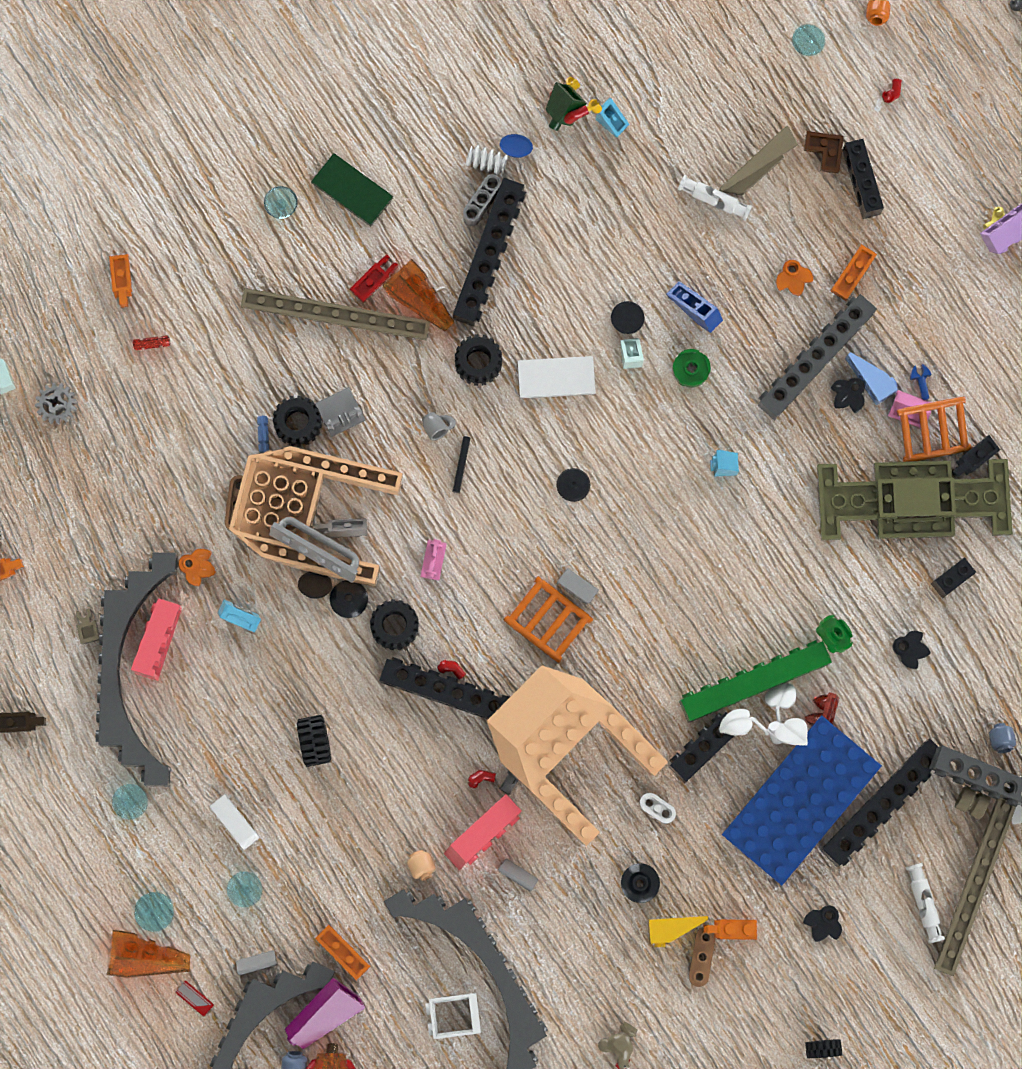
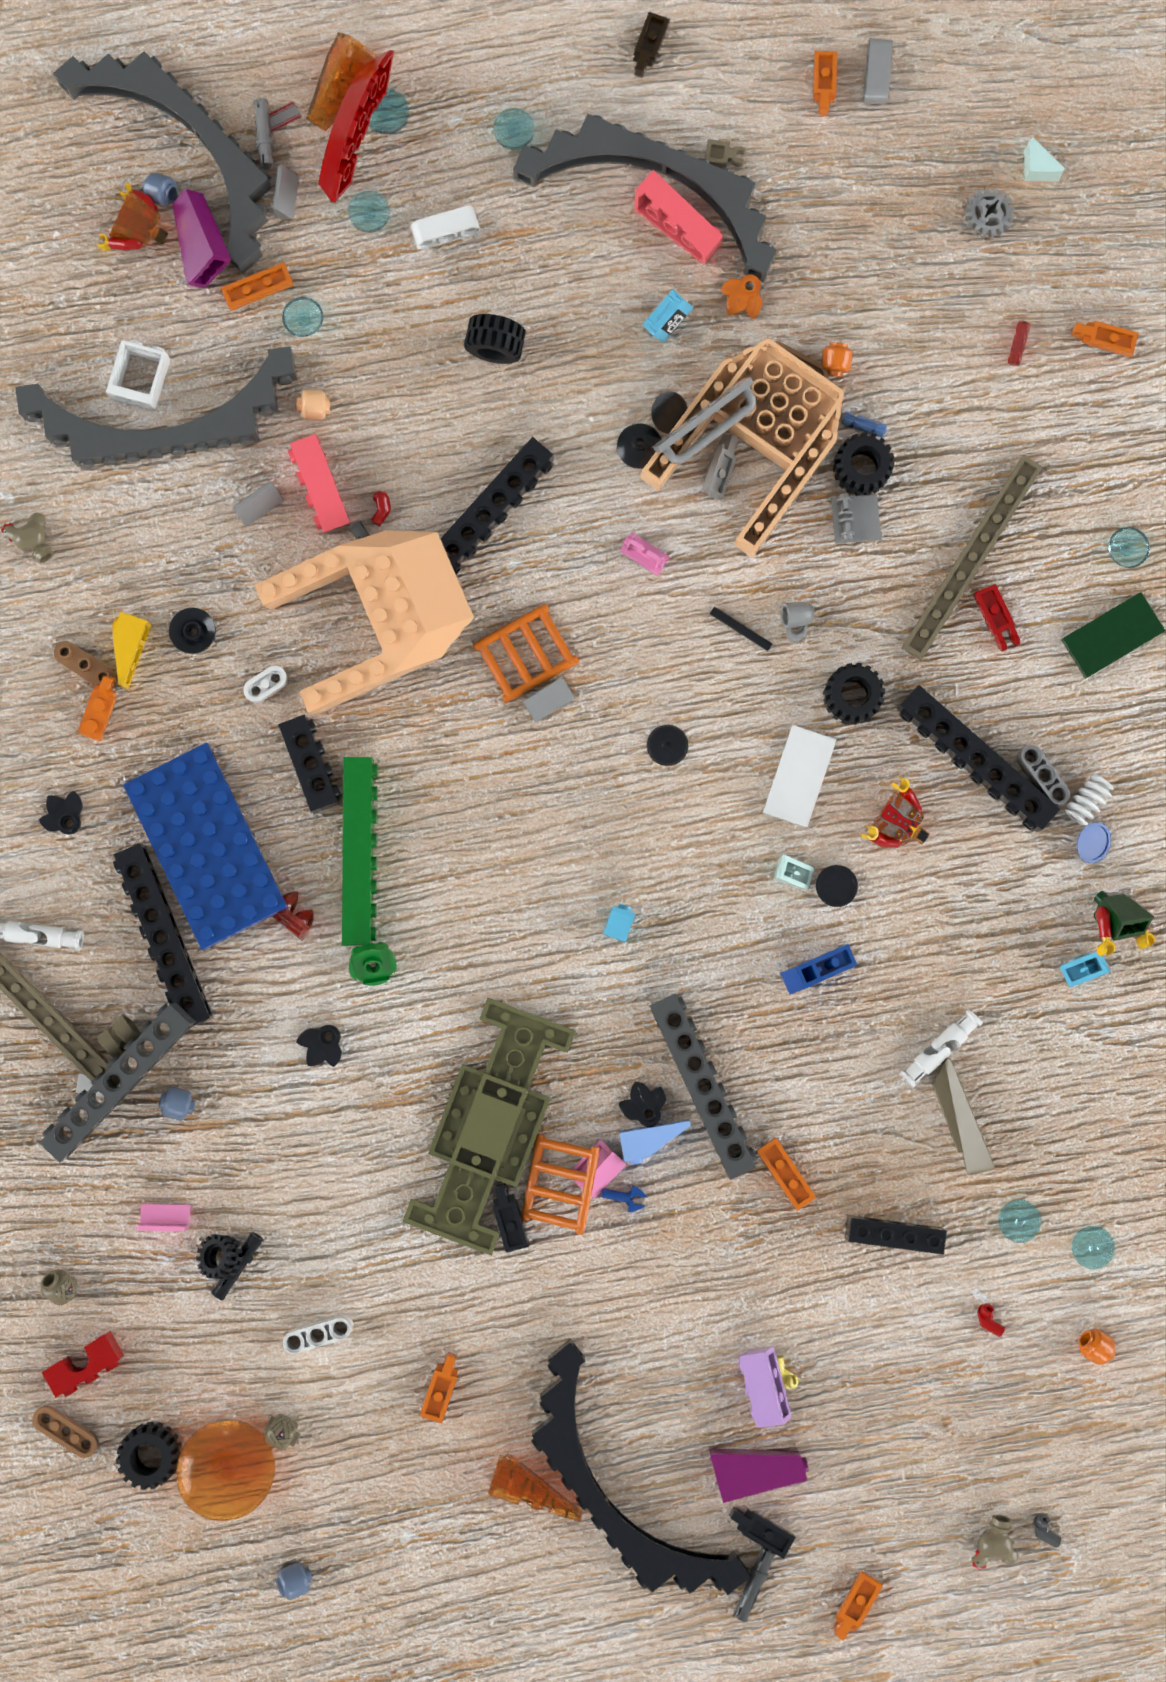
camera: 115 degrees right, 5 degrees up
(182, 926) = (352, 123): none -> red brick
(213, 1002) = (264, 142): none -> light grey pin
(220, 474) = (837, 359): none -> orange head
(353, 905) = (302, 316): none -> clear light blue piece
(390, 608) = (593, 461): black tyre -> none
(412, 291) = (962, 655): clear orange wedge -> none
(451, 666) = (517, 525): red arm -> none
(560, 291) = (898, 819): none -> torso
(697, 359) = (758, 926): green plate -> none
(792, 732) = (278, 854): white plant -> none
(795, 280) = (804, 1100): orange plate -> none
(812, 97) = (1019, 1221): none -> clear light blue piece
(829, 146) = (953, 1211): reddish brown plate -> none
(953, 577) = (380, 1129): black brick -> none

